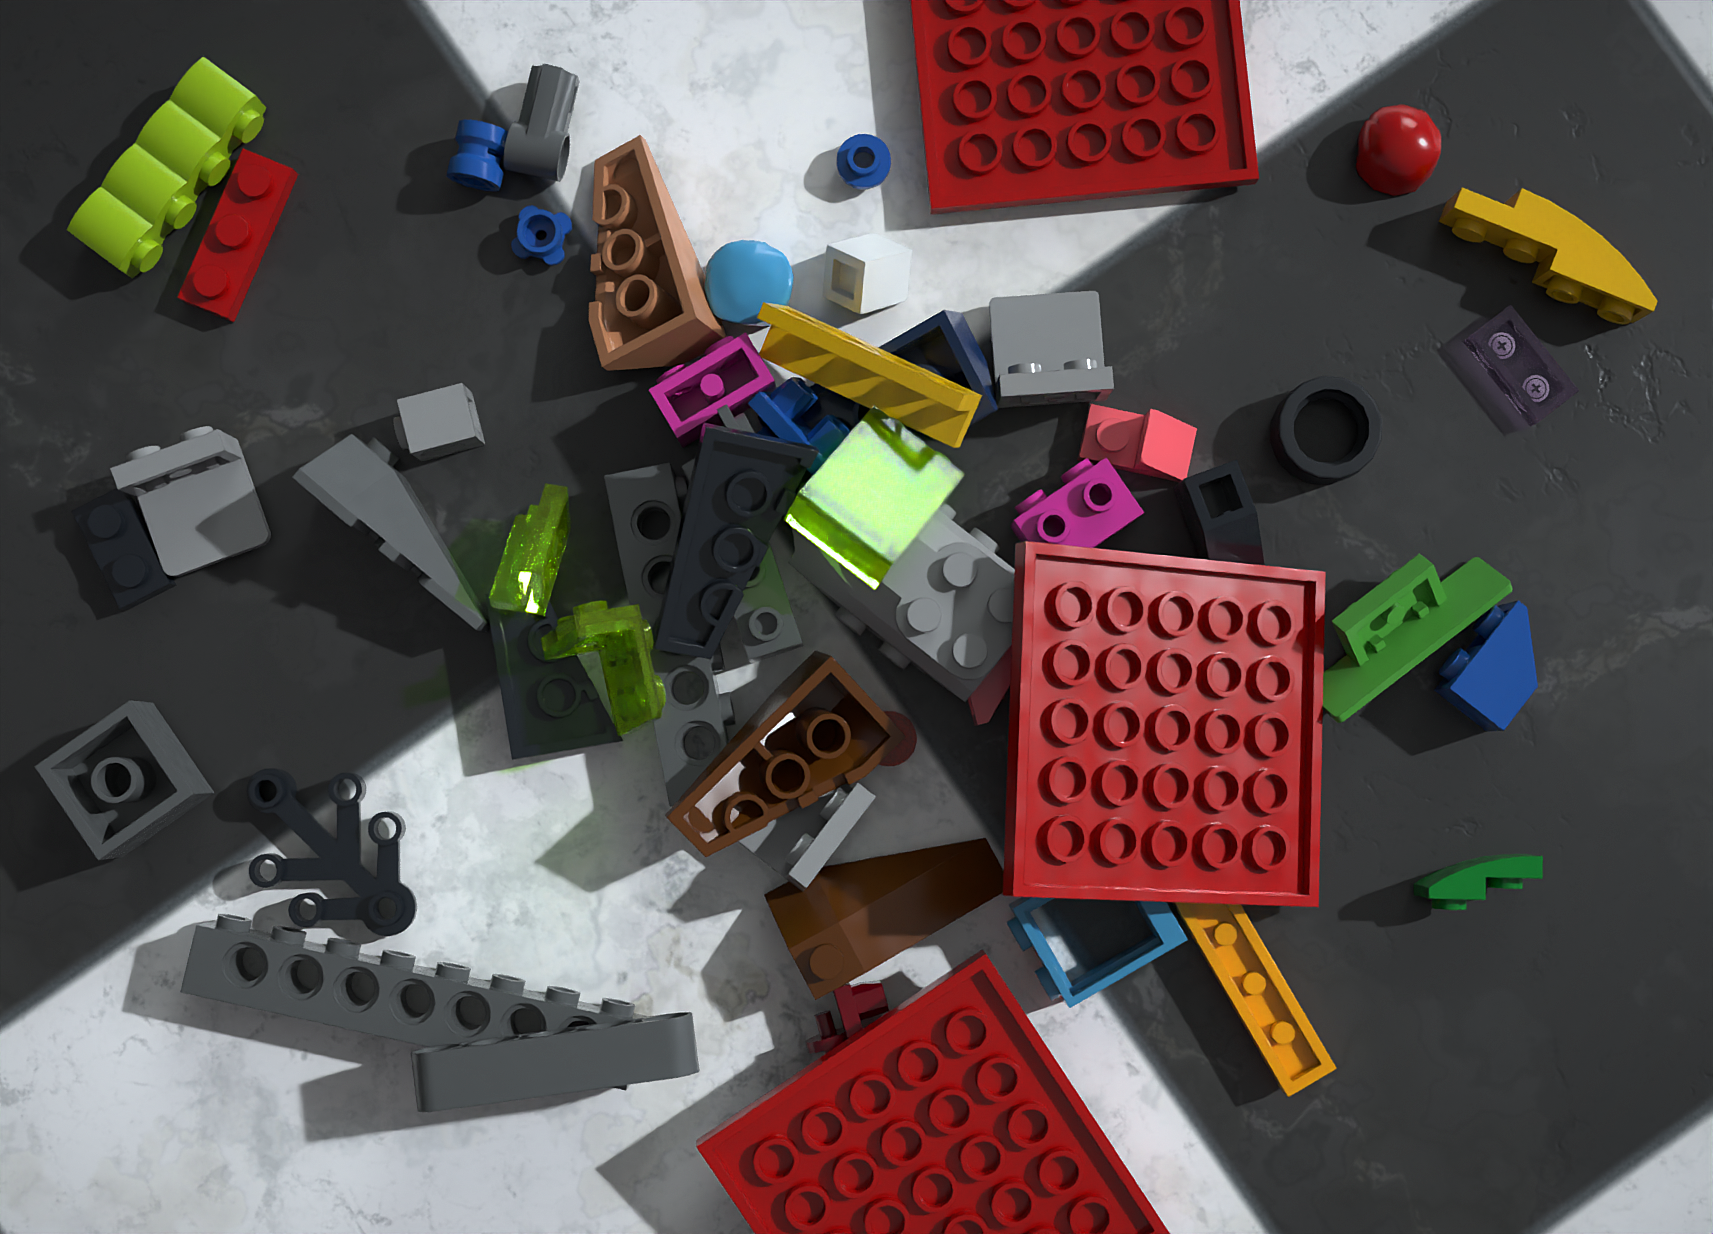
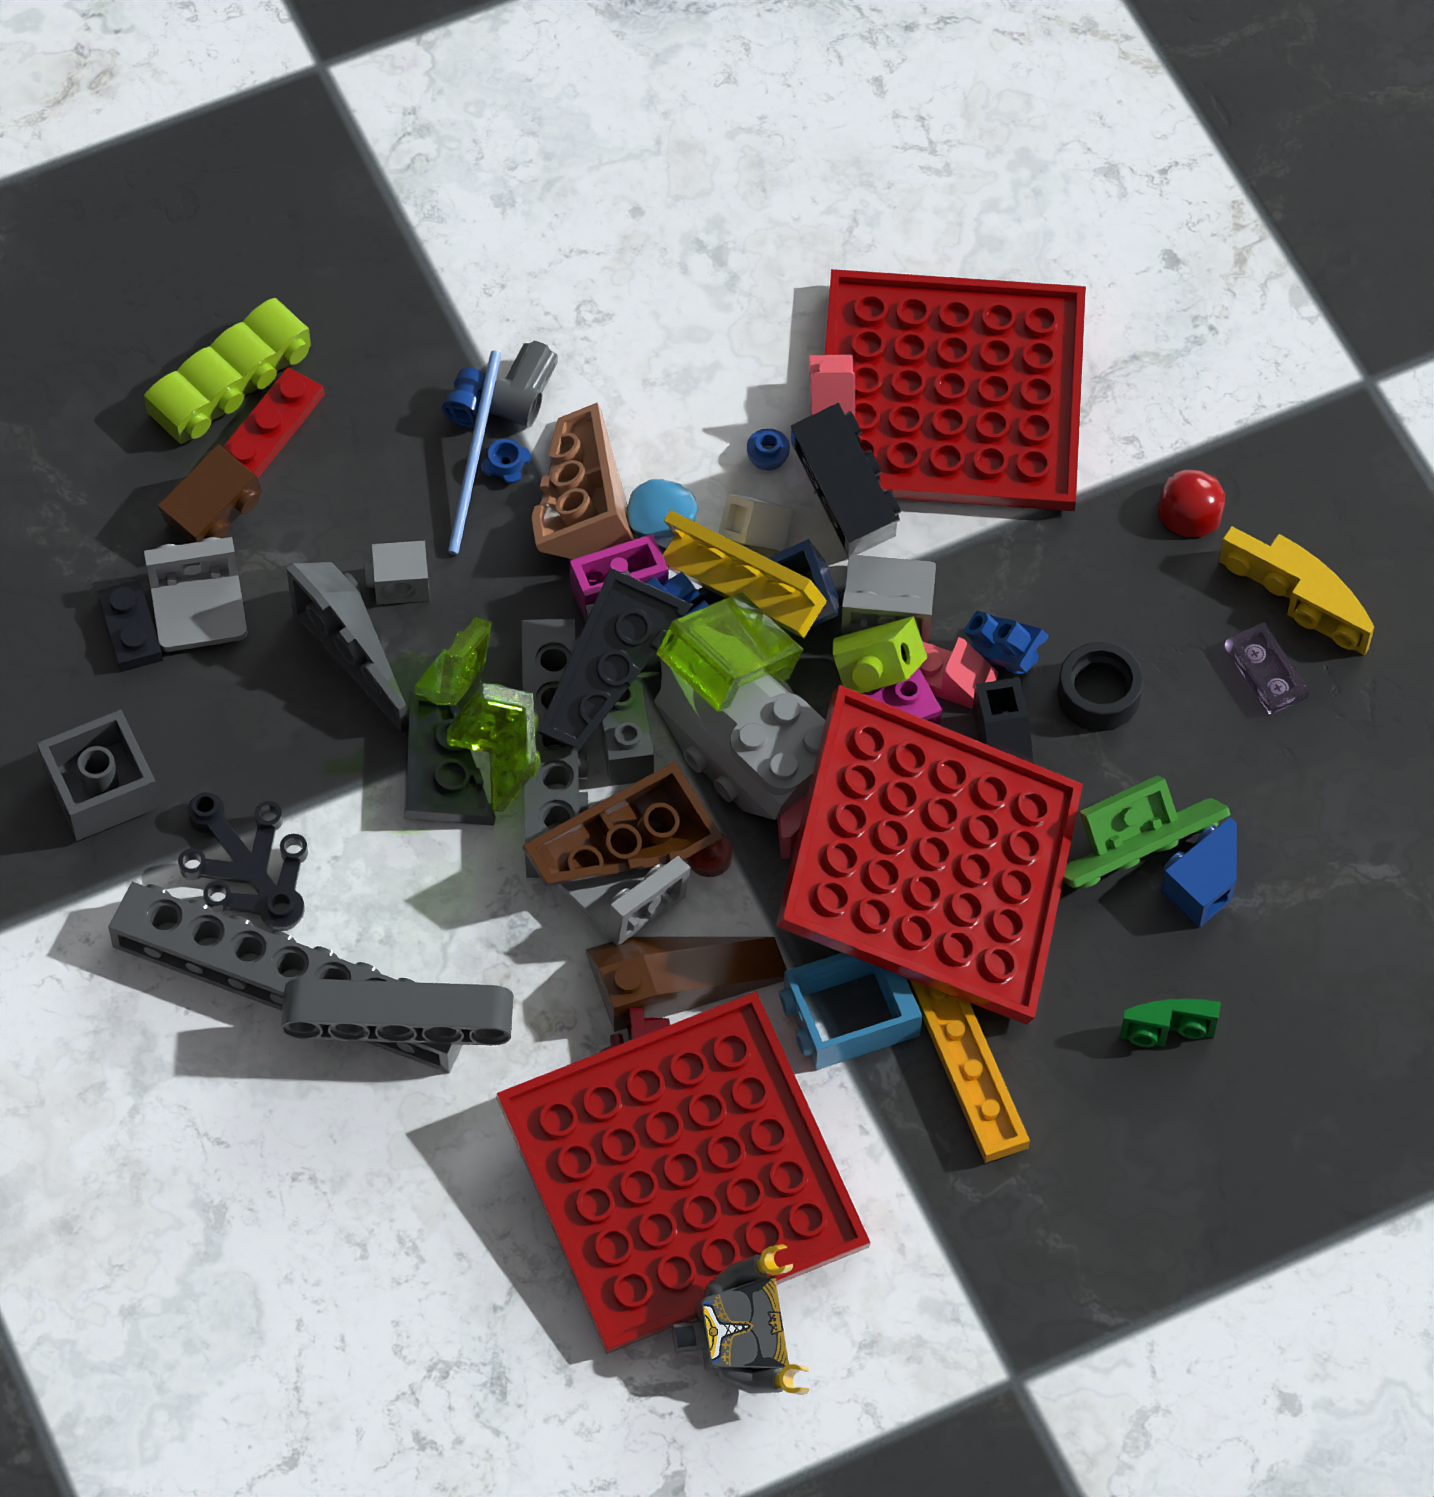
camera: 10 degrees right, 25 degrees down
(183, 363) = (211, 497): none -> reddish brown brick
(499, 164) = (474, 453): none -> light blue axle
(933, 79) = (831, 382): none -> coral slope
(977, 214) = (845, 479): none -> black brick
(1054, 457) = (874, 657): none -> lime torso
(1205, 397) = (1005, 641): none -> blue hips

